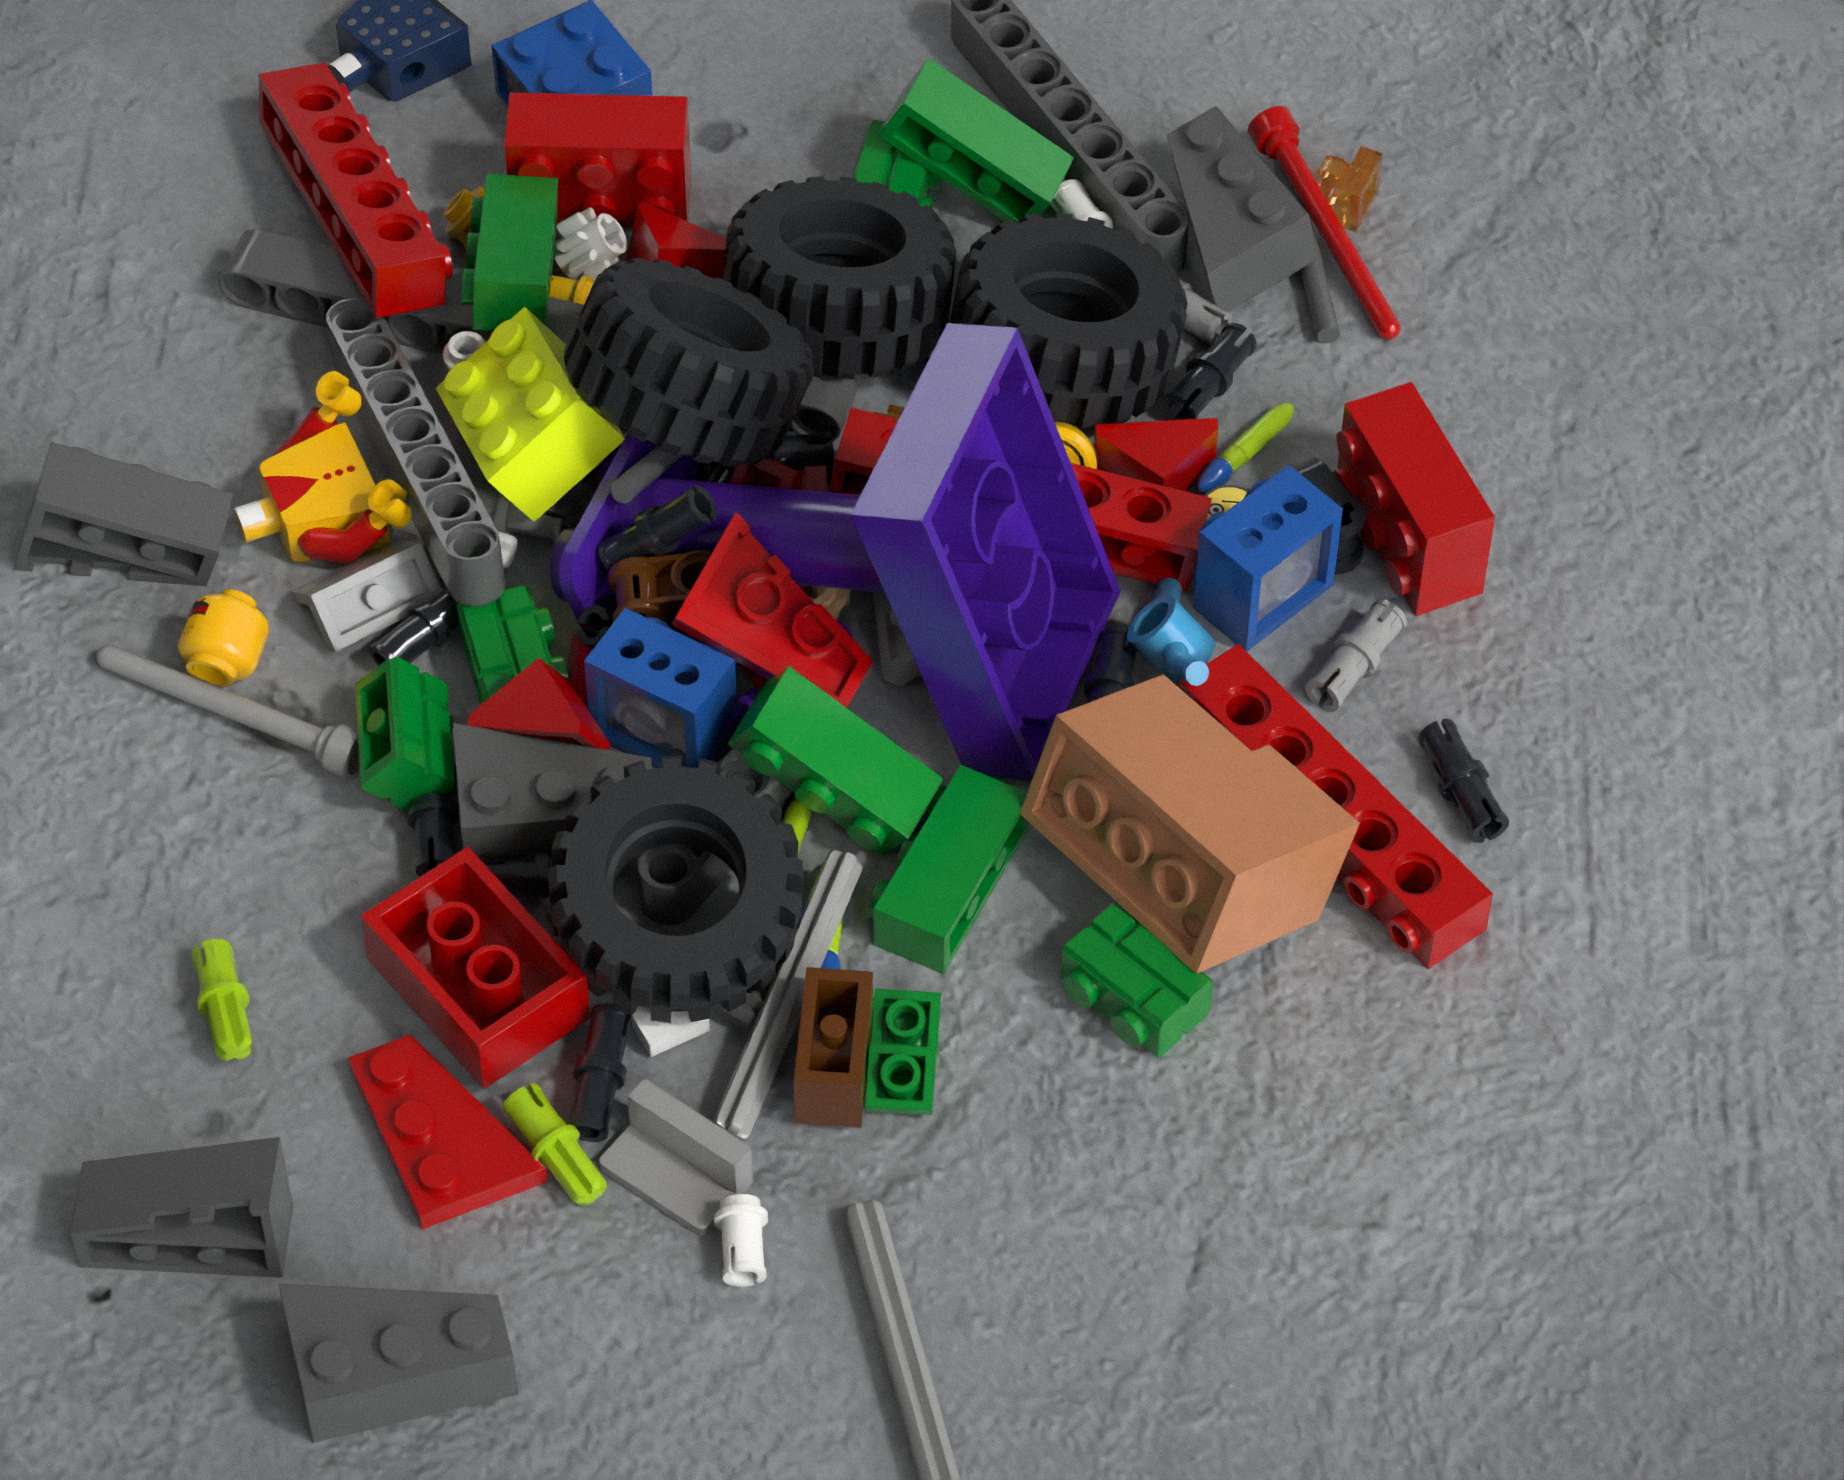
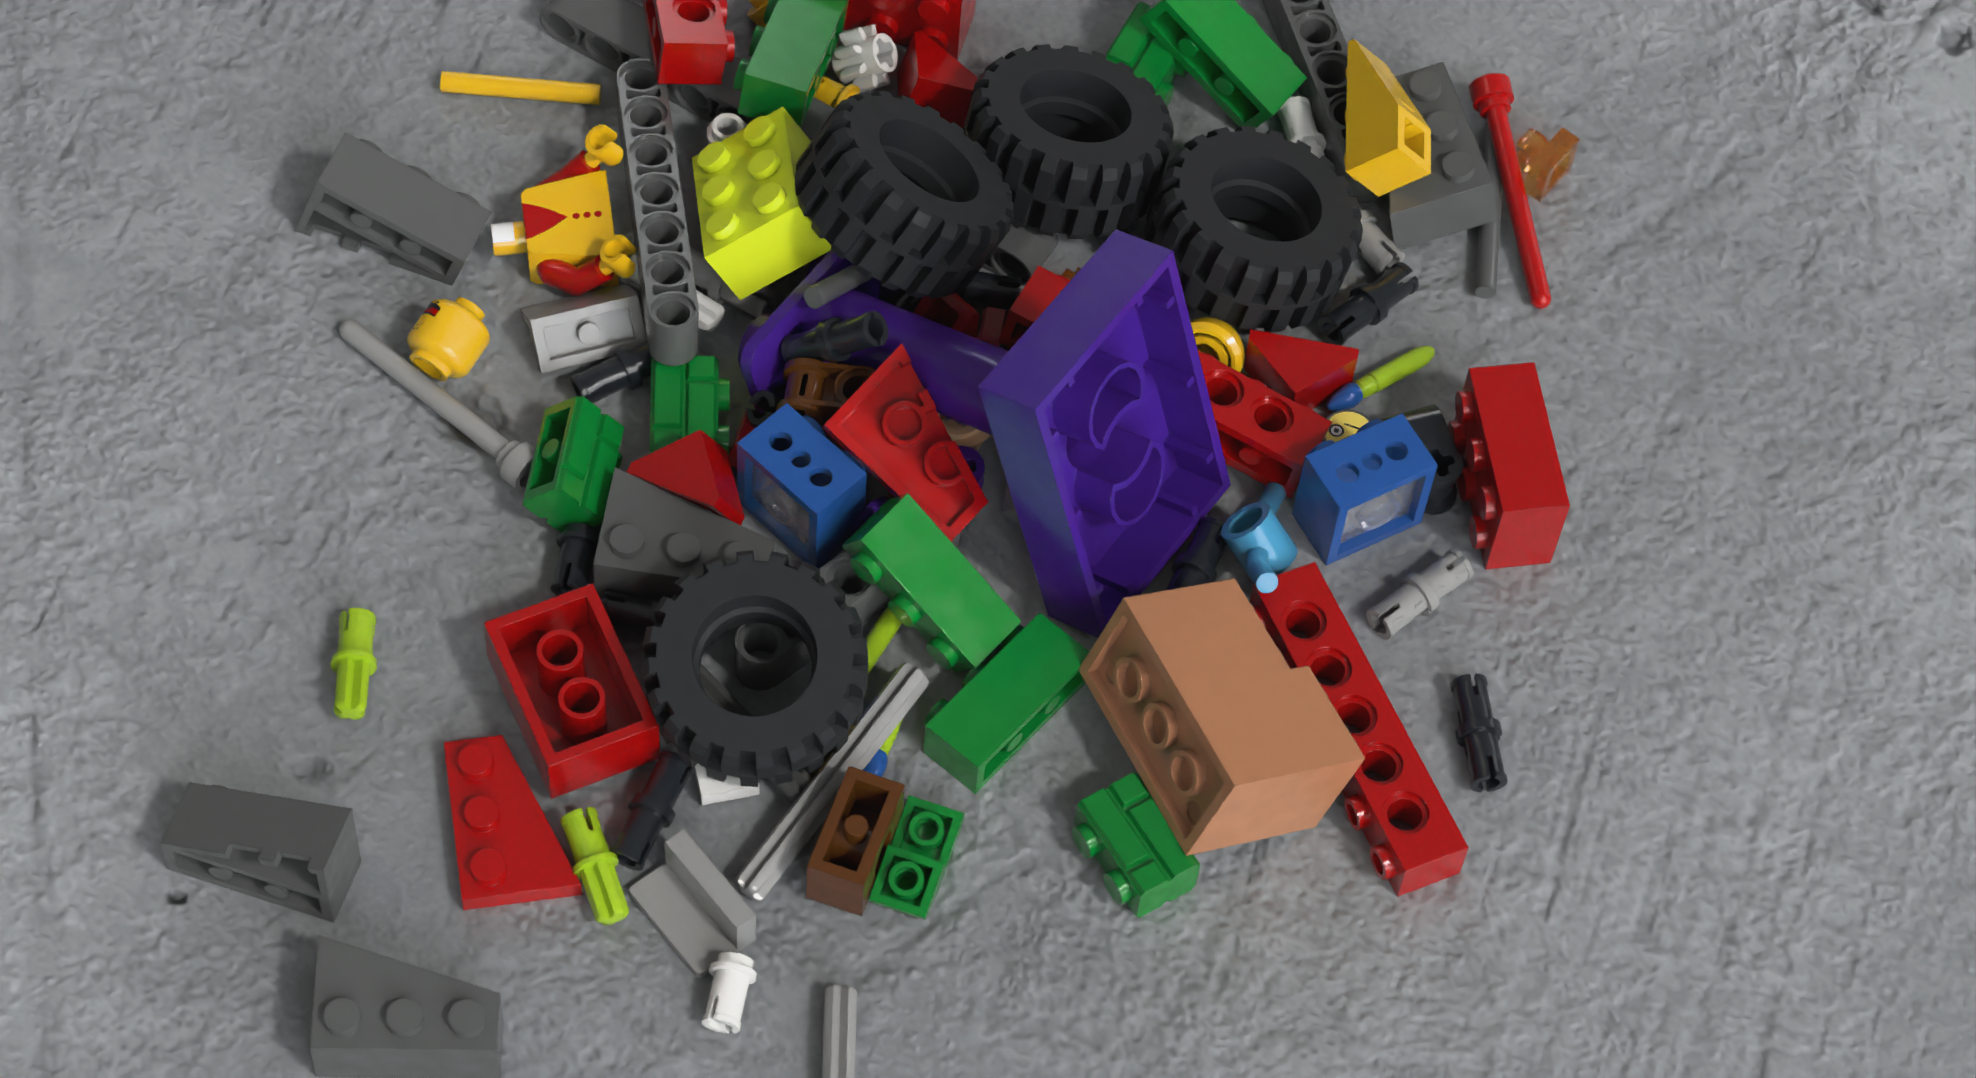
camera: 10 degrees right, 5 degrees up
(219, 363) = (521, 88): none -> yellow bar
(1179, 192) = (1384, 130): none -> yellow slope

